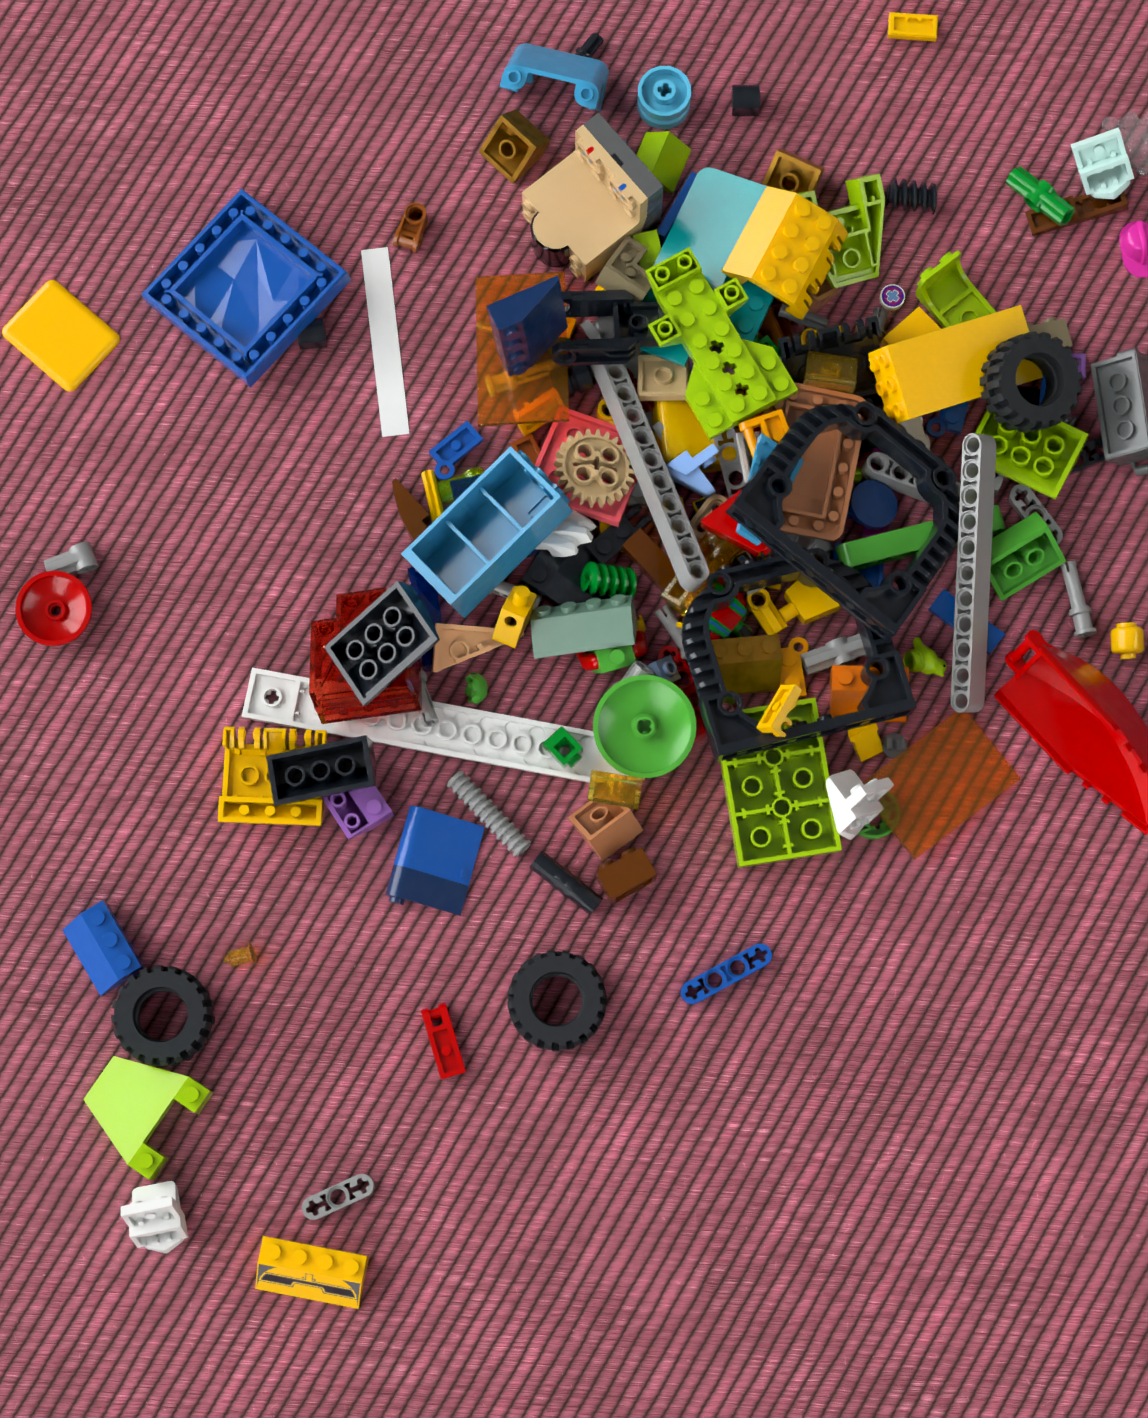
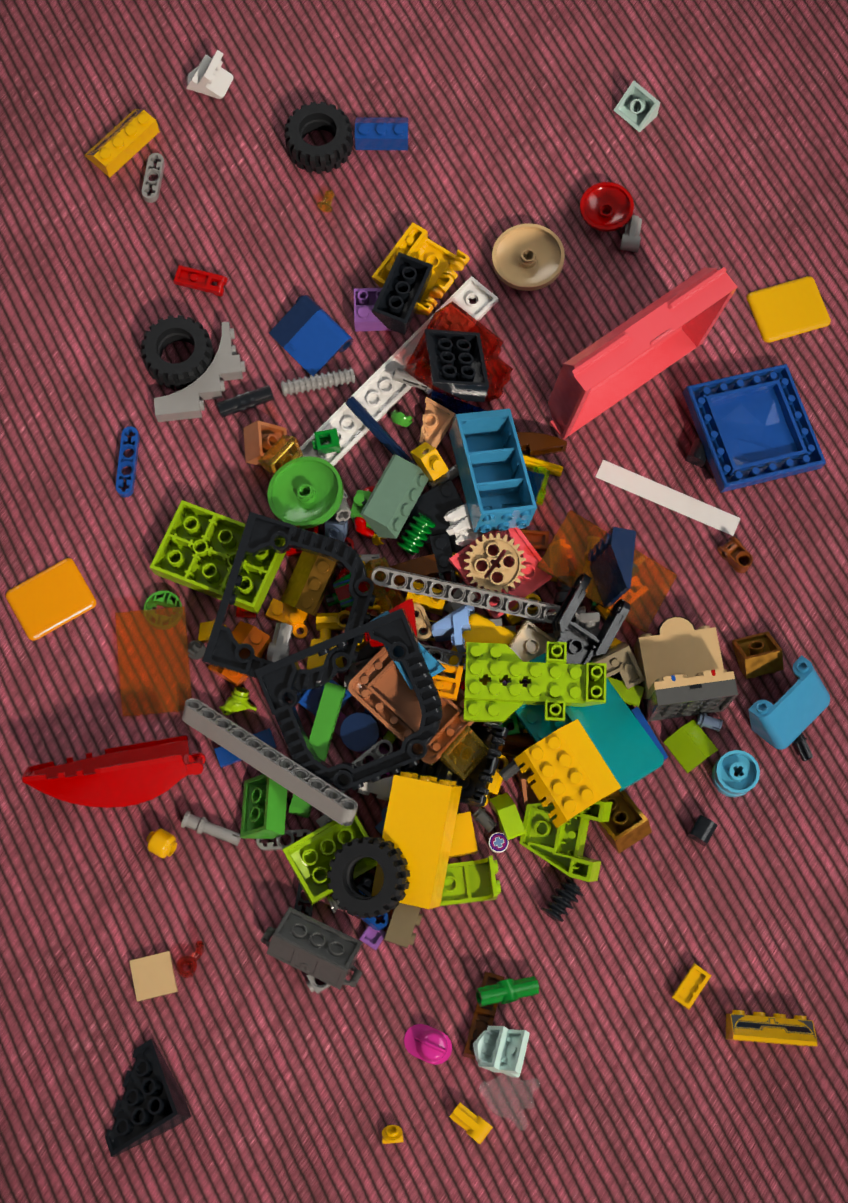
camera: 120 degrees right, 5 degrees down
(132, 1102) = (276, 98): wedge -> none
(177, 662) = (528, 257): none -> tan dish
(258, 429) = (638, 349): none -> coral panel
(455, 448) = (566, 494): blue hinge -> none
(511, 698) = (376, 429): none -> dark blue axle
(538, 936) = (190, 401): none -> light grey arch
(625, 875) = (223, 433): reddish brown brick -> none
(775, 715) = (253, 564): yellow plate -> none
(854, 802) = (174, 592): white piece -> none
(860, 299) = (508, 816): none -> lime slope
(941, 953) = (50, 599): none -> light orange piece

